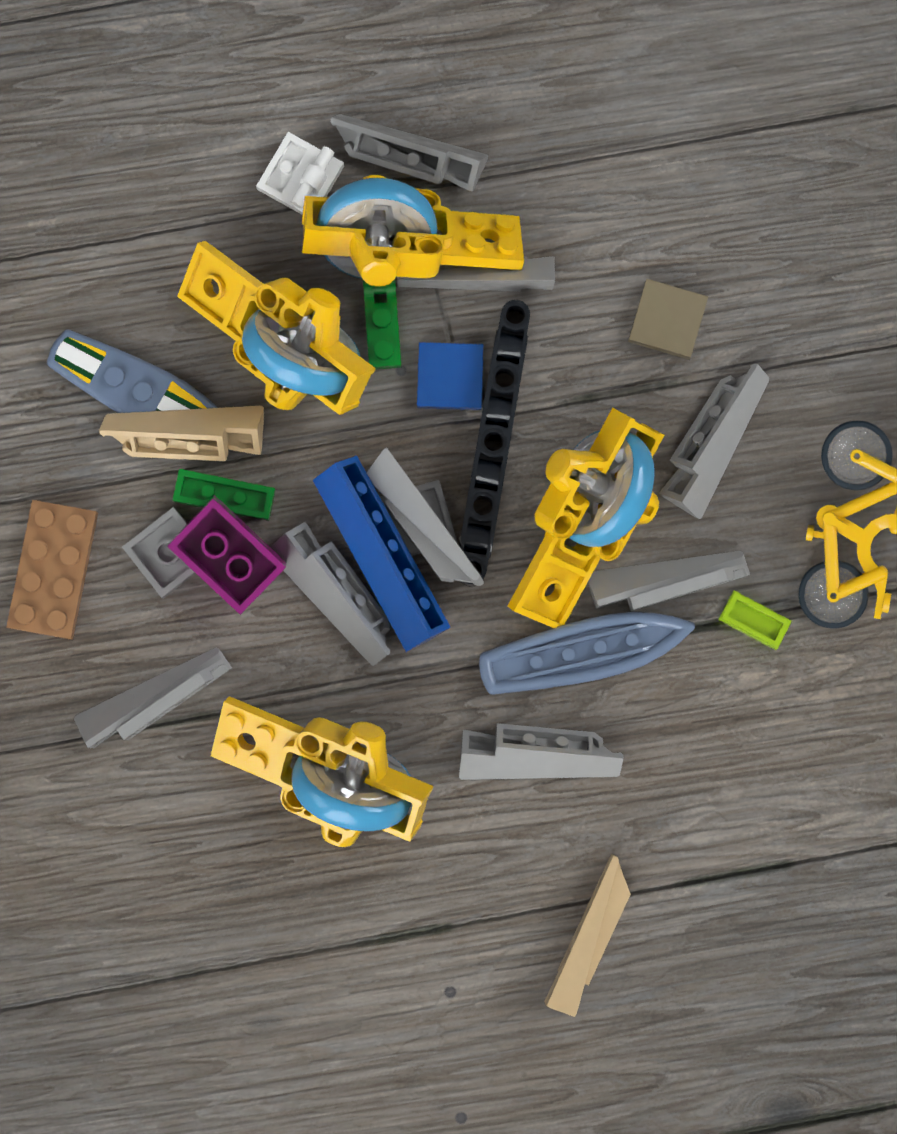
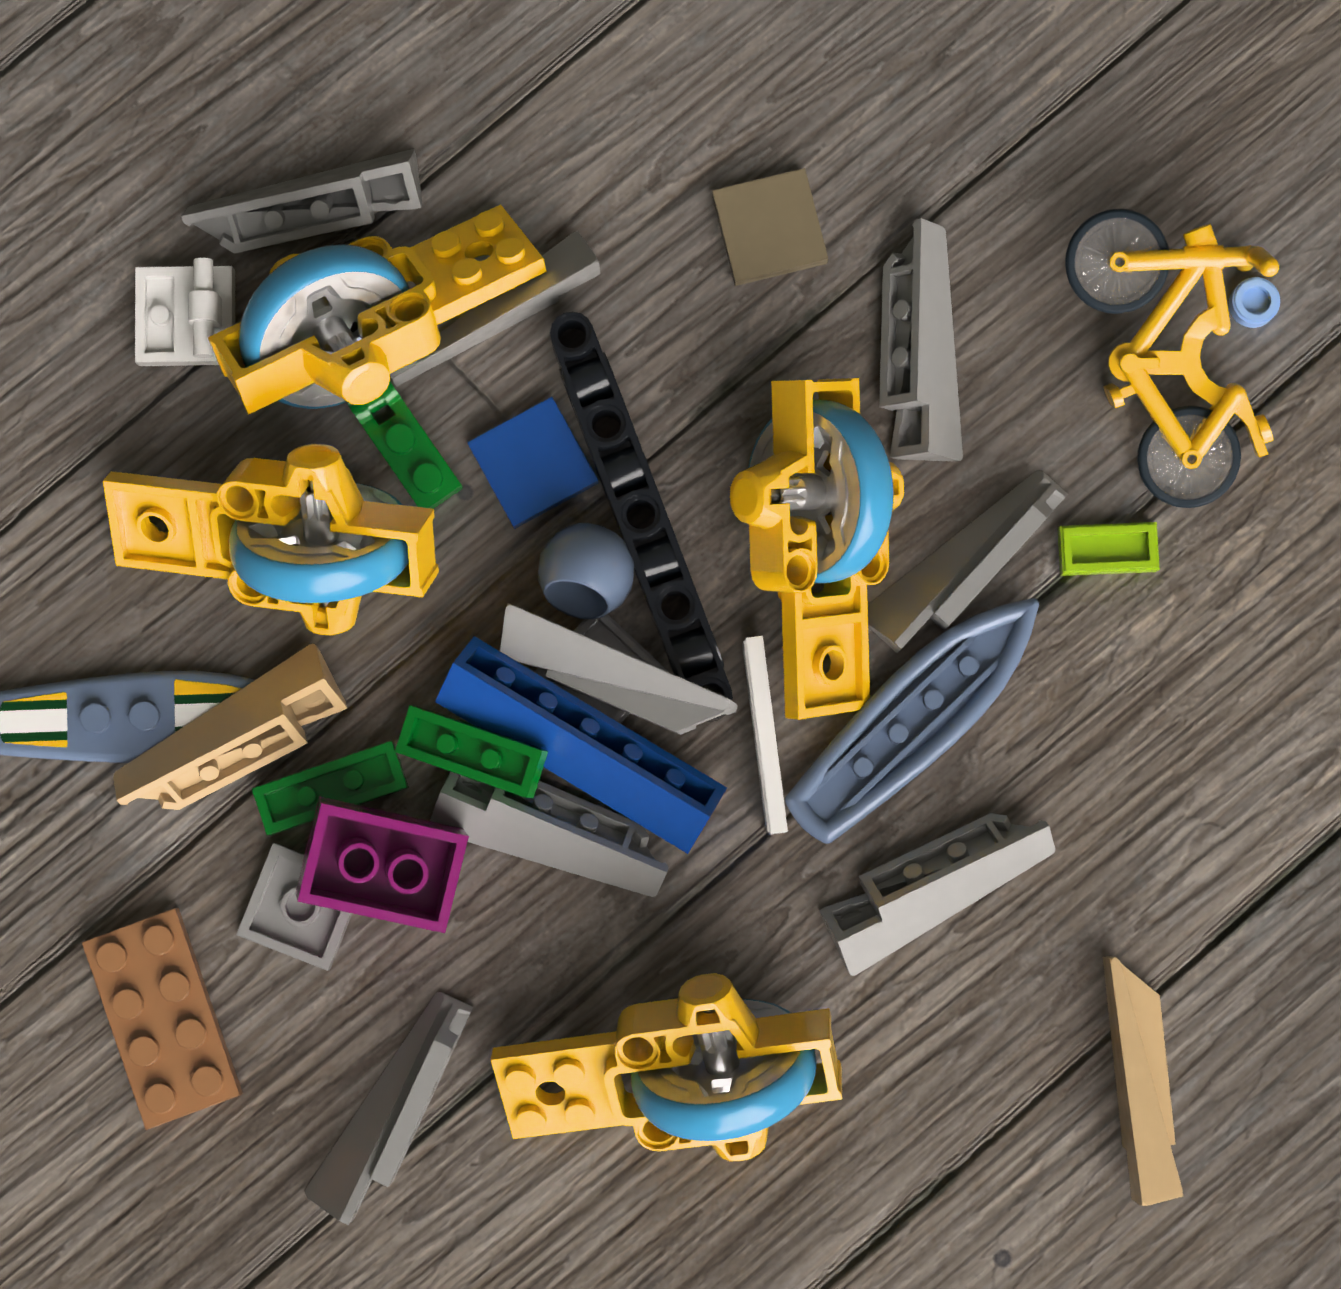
camera: 30 degrees left, 0 degrees up
(316, 520) = (471, 751): none -> green plate
(442, 455) = (586, 571): none -> sand blue helmet
(490, 610) = (764, 735): none -> white tile

